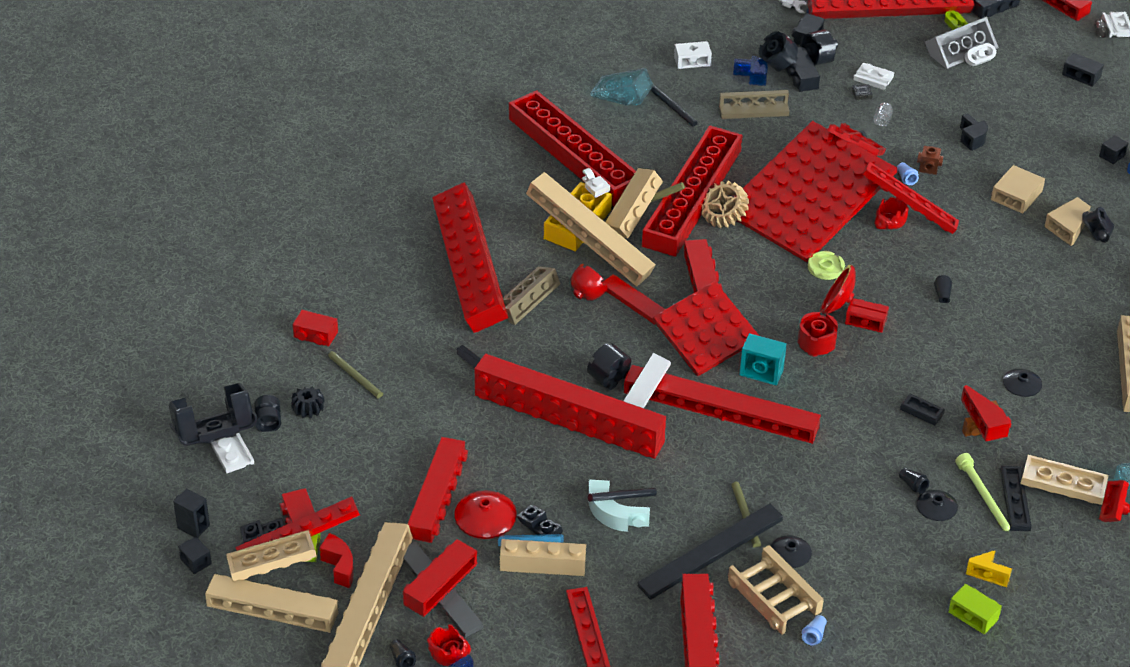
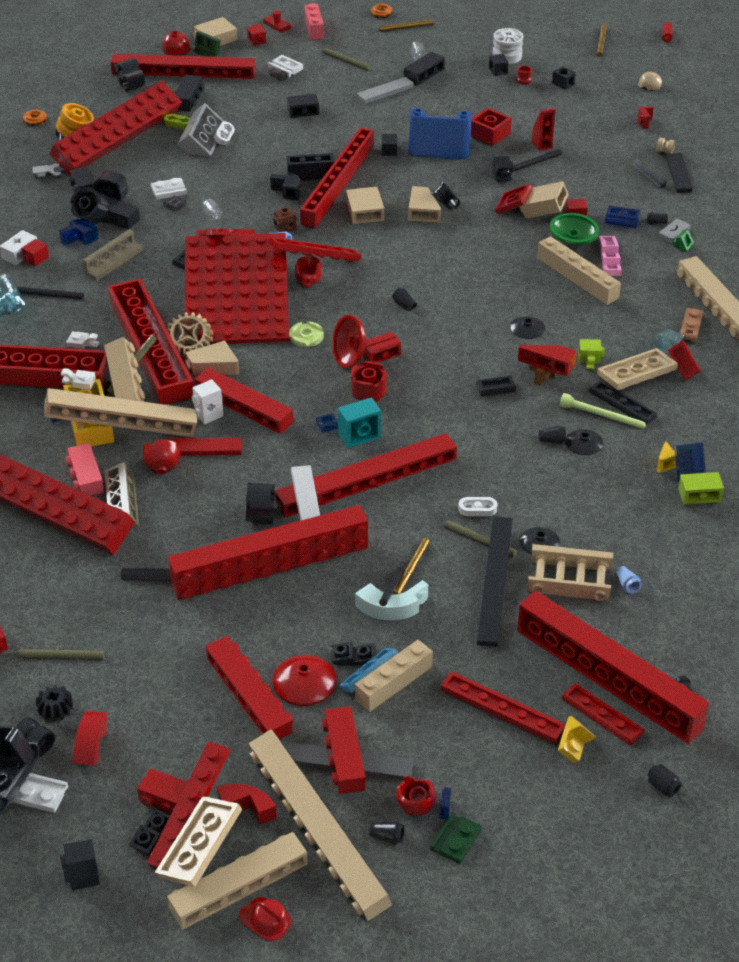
camera: 45 degrees left, 0 degrees up
(195, 555) = (122, 897): black brick -> none
(262, 642) = (266, 918): none -> red piece
(307, 434) = (87, 742): none -> red brick
(526, 256) = (84, 470): none -> coral brick
(649, 157) = (81, 339): none -> white plate
(666, 495) = (411, 566): none -> pearl gold bar
(670, 264) = (207, 401): none -> white brick
(699, 66) = (35, 252): none -> red brick
(705, 328) = (291, 429): red plate -> none
(722, 236) = (215, 356): none -> tan slope
(777, 490) = (477, 506): none -> white plate
(994, 579) = (689, 459): none -> clear blue plate
(1012, 126) = (310, 166): none -> black brick
(1024, 150) = (337, 178): none -> red brick
(1042, 437) = (590, 352): none -> lime brick

